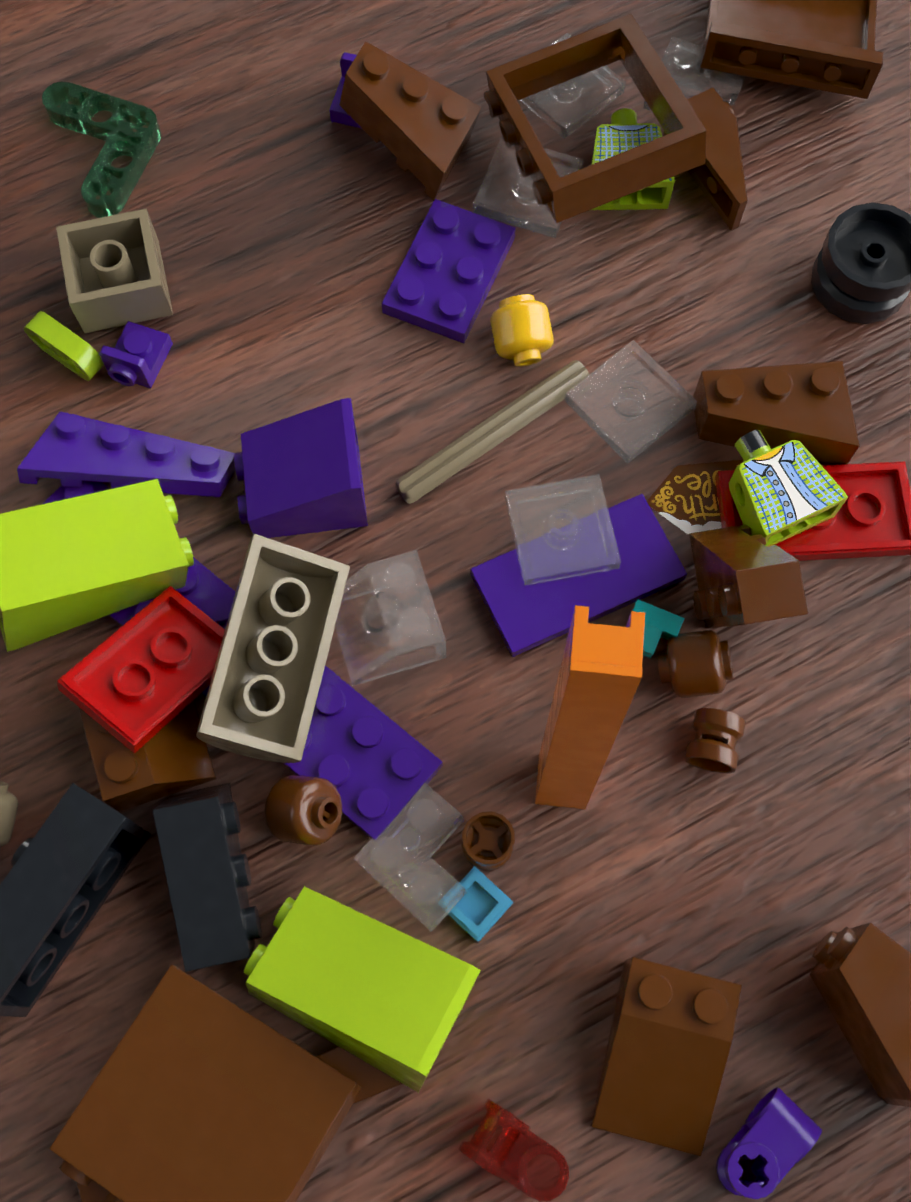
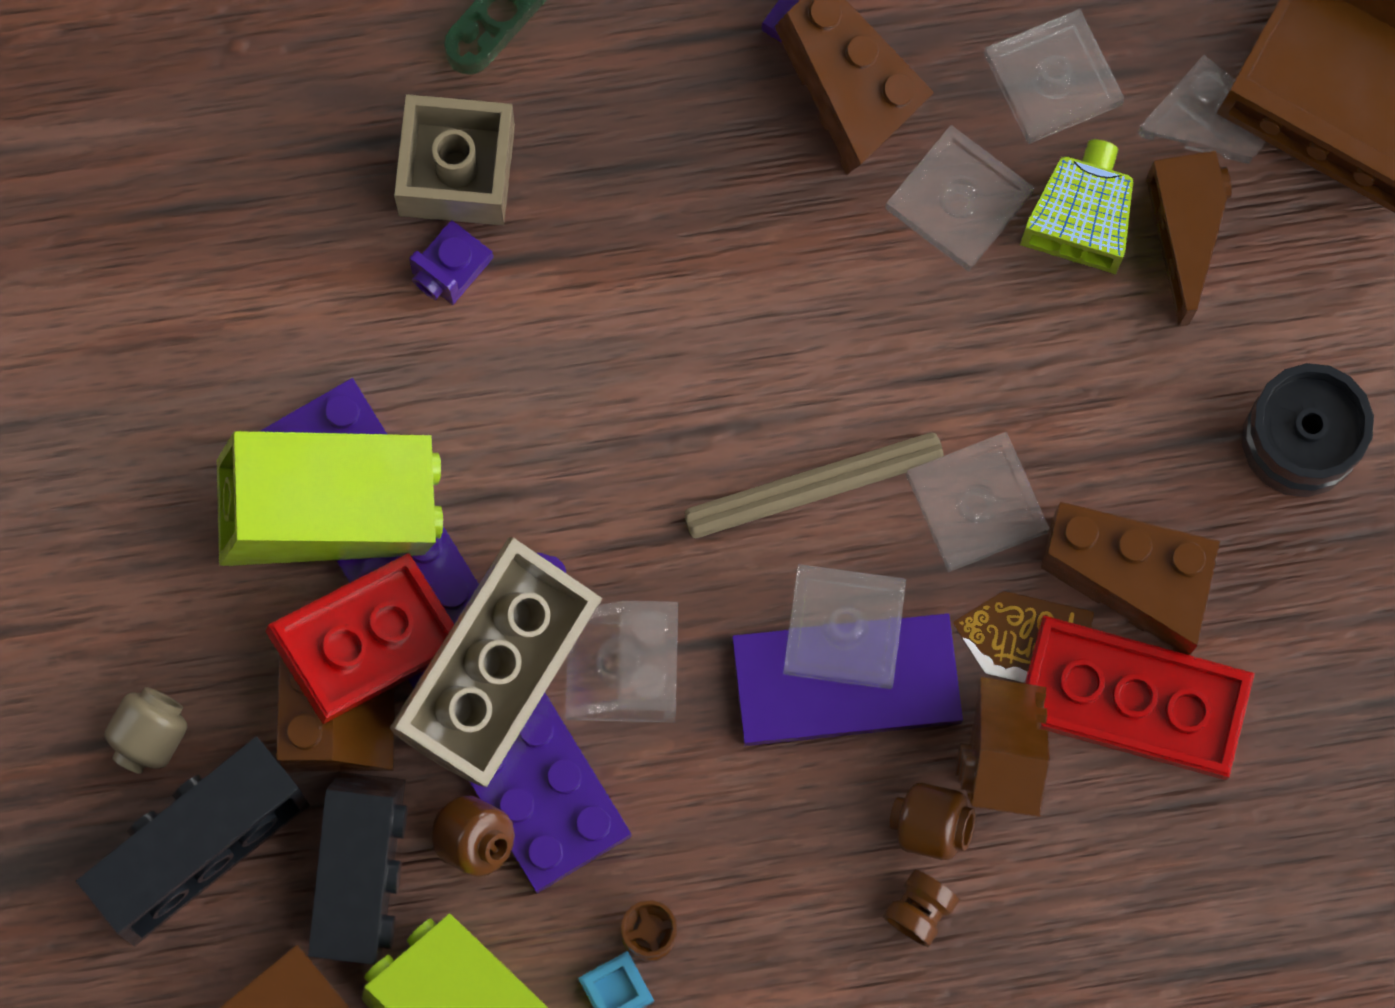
camera: 15 degrees right, 5 degrees up
(64, 345) = (372, 228): lime beam -> none
(99, 451) = (380, 372): dark purple wing -> none
(302, 474) = (586, 472): dark purple slope -> none
(403, 860) = (557, 920): clear plate -> none
(448, 271) = (832, 272): dark purple plate -> none
(521, 329) = (886, 378): yellow head -> none
(588, 707) = (762, 850): orange tile -> none
(621, 174) = (1060, 238): reddish brown window -> none
(658, 625) = (903, 765): teal tile -> none
(782, 489) = (1094, 664): torso -> none

